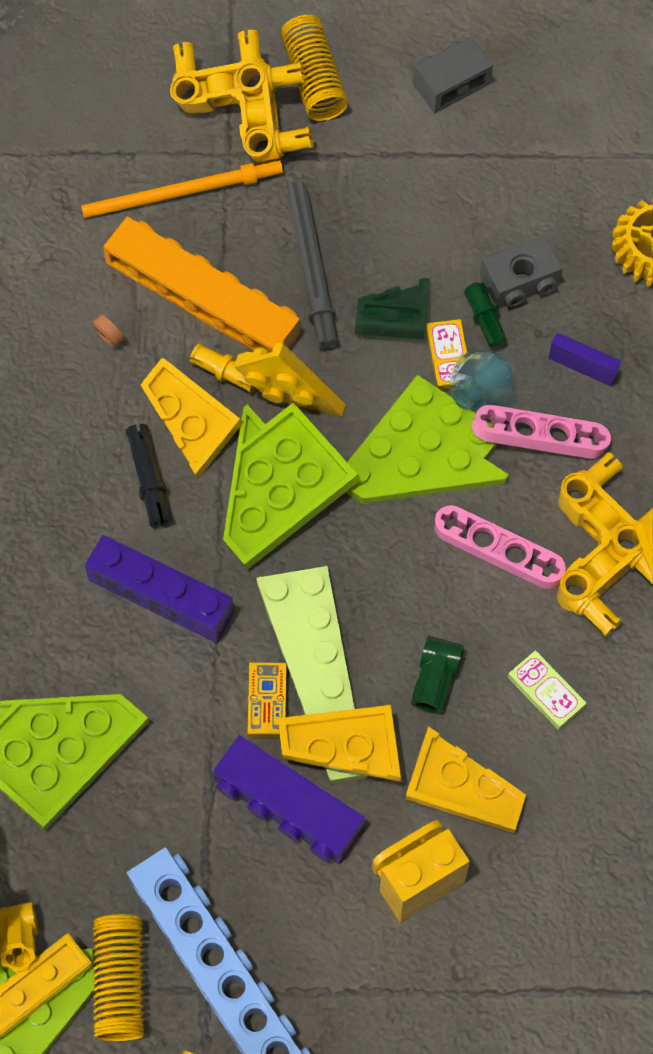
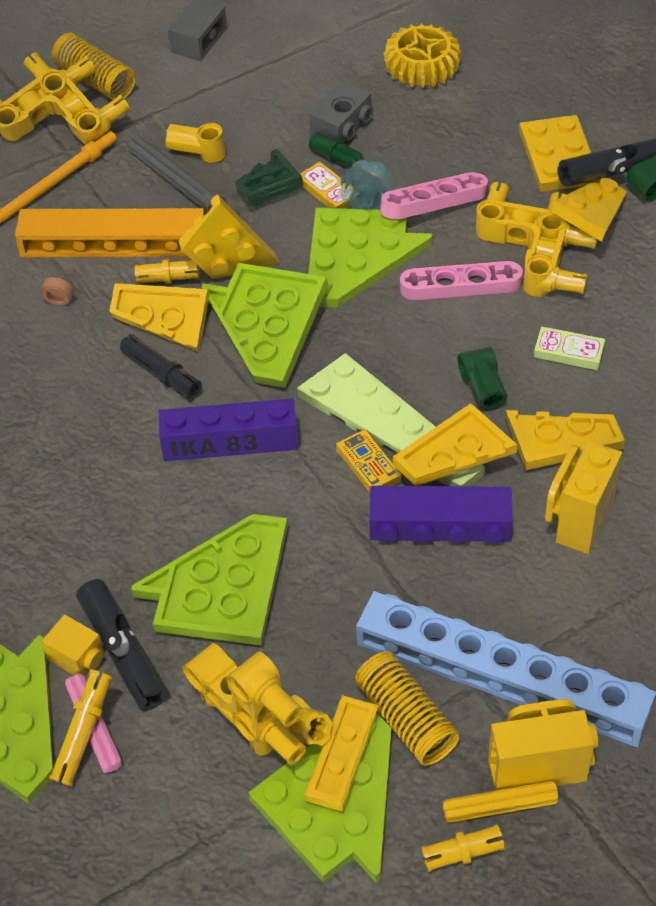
camera: 30 degrees left, 15 degrees down
(356, 221) = (205, 140): none -> yellow piece
(584, 359) = (428, 142): dark purple tile -> none

